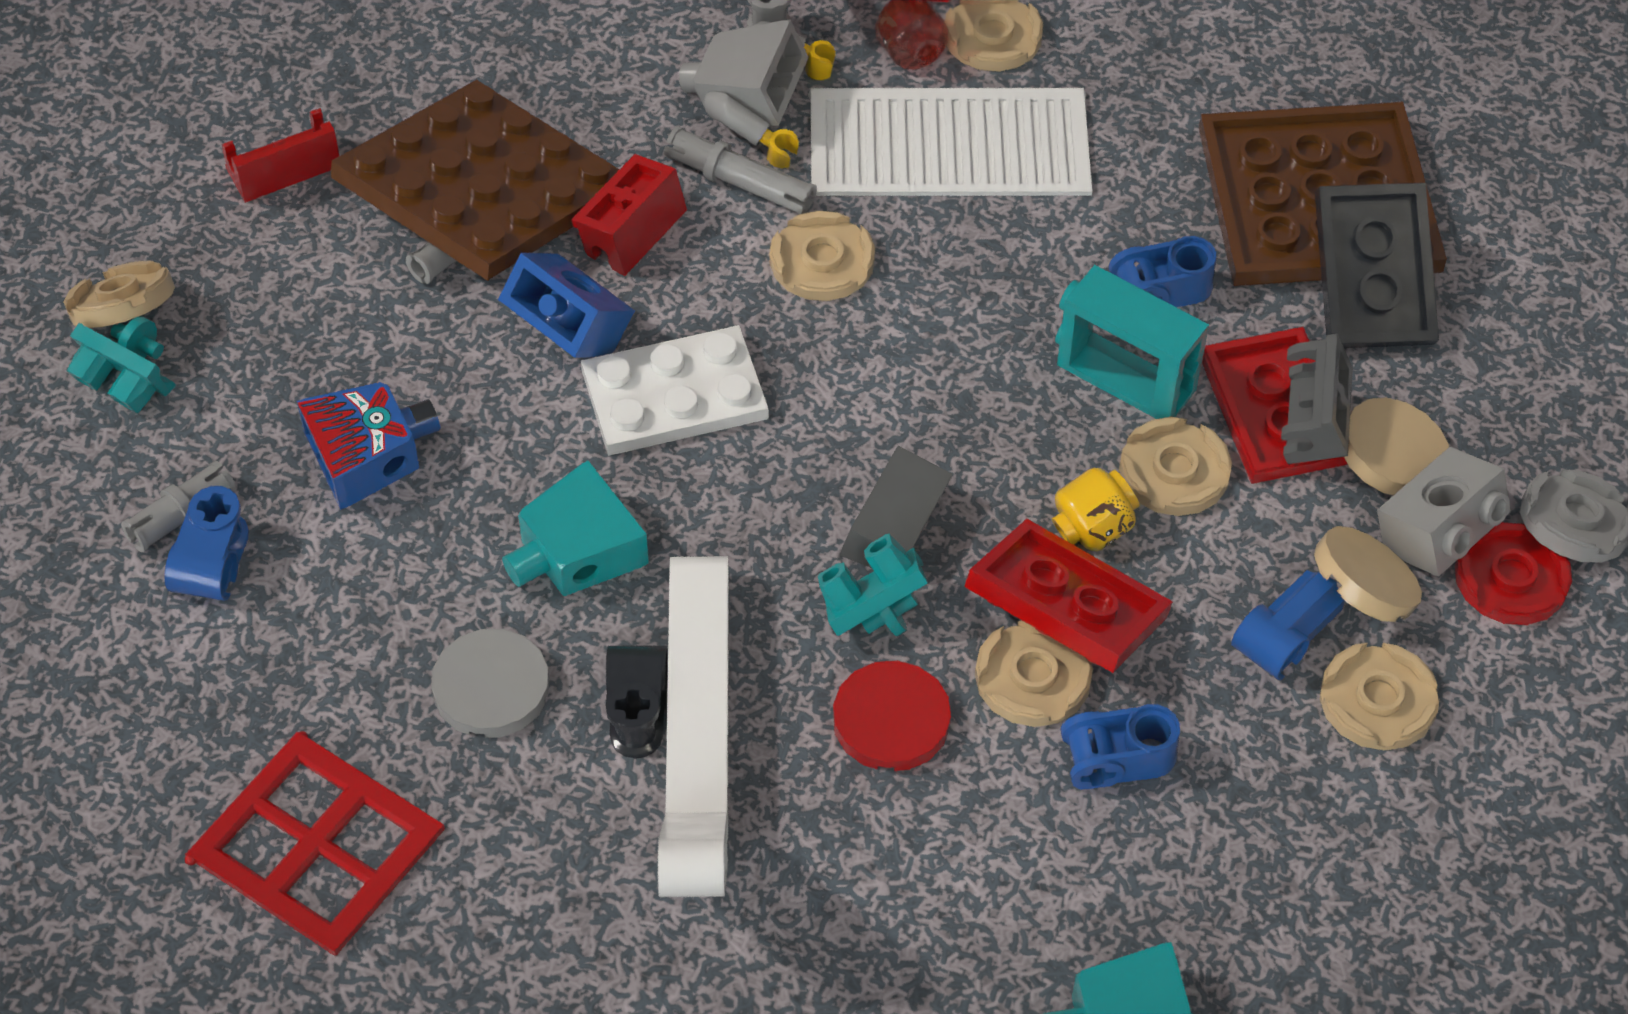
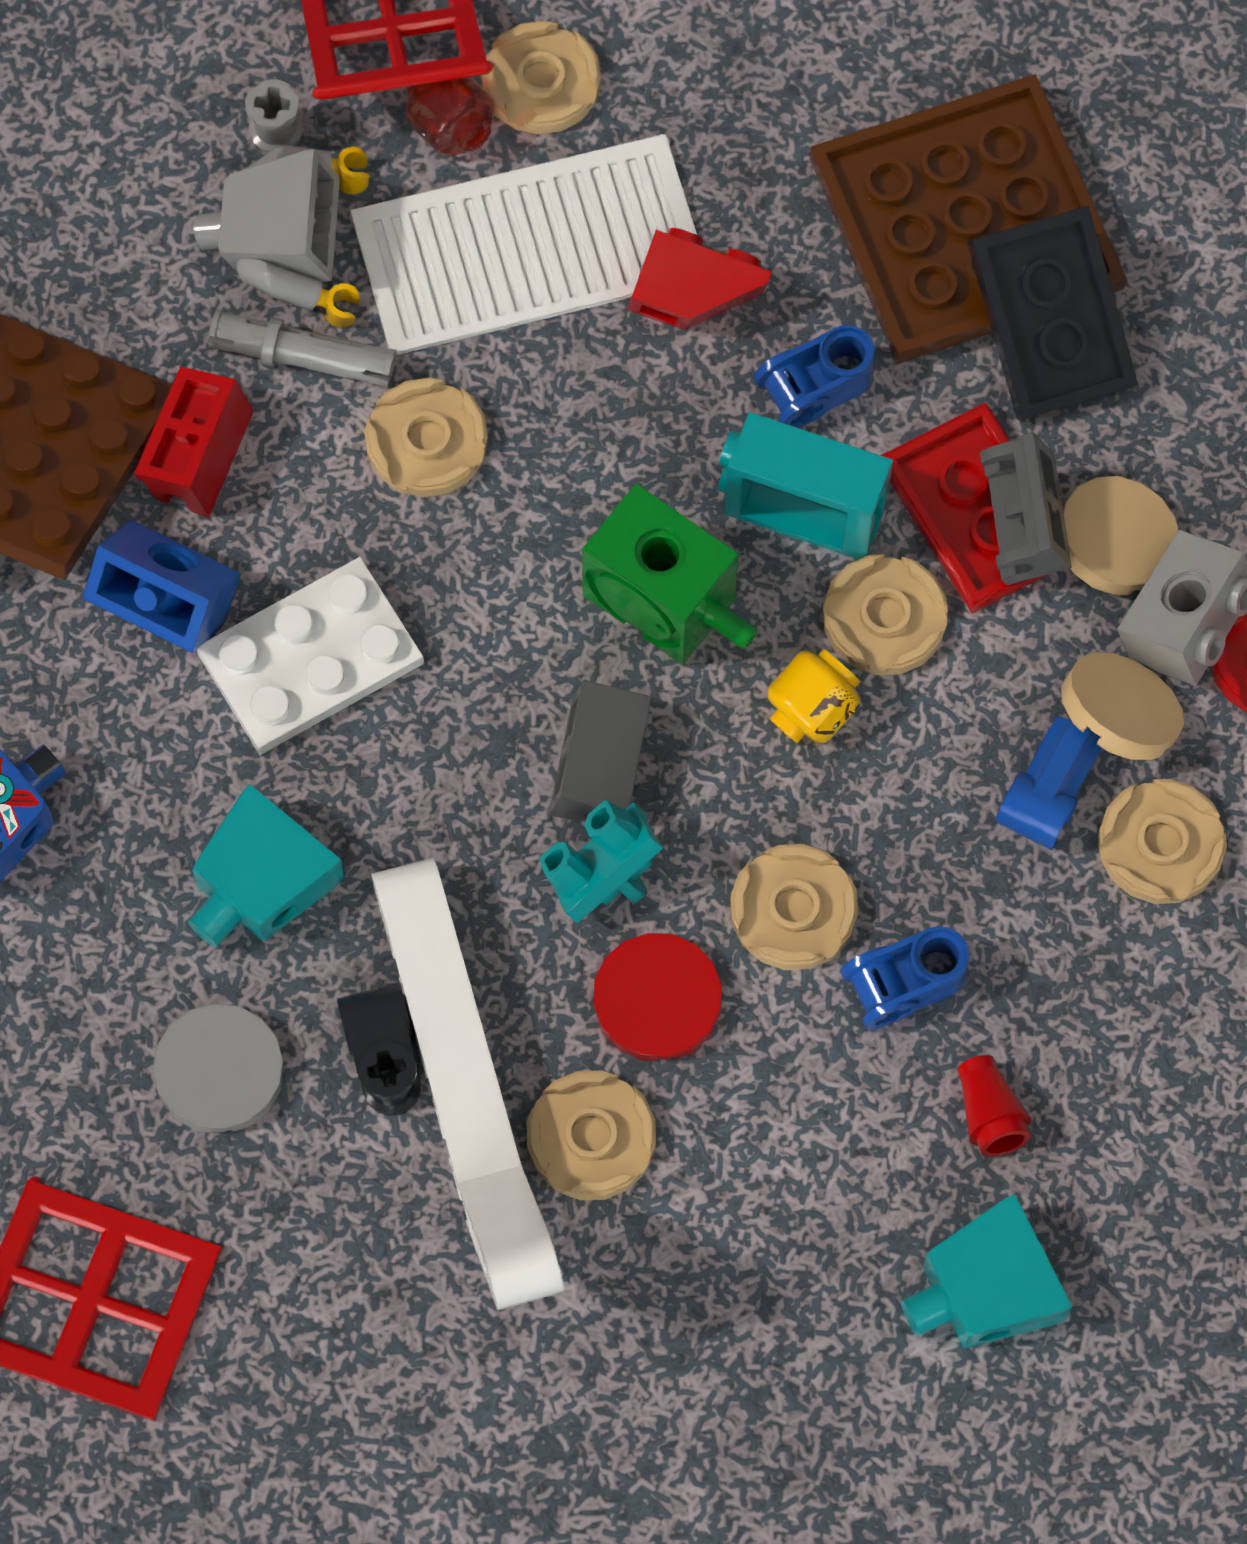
camera: 15 degrees left, 15 degrees up
(799, 833) = (589, 1159): none -> tan tile
(988, 382) = (663, 576): none -> green piece
(1068, 595) = (811, 811): red plate -> none
(1076, 187) = (692, 283): none -> red slope
(1170, 878) = (992, 1109): none -> red cone

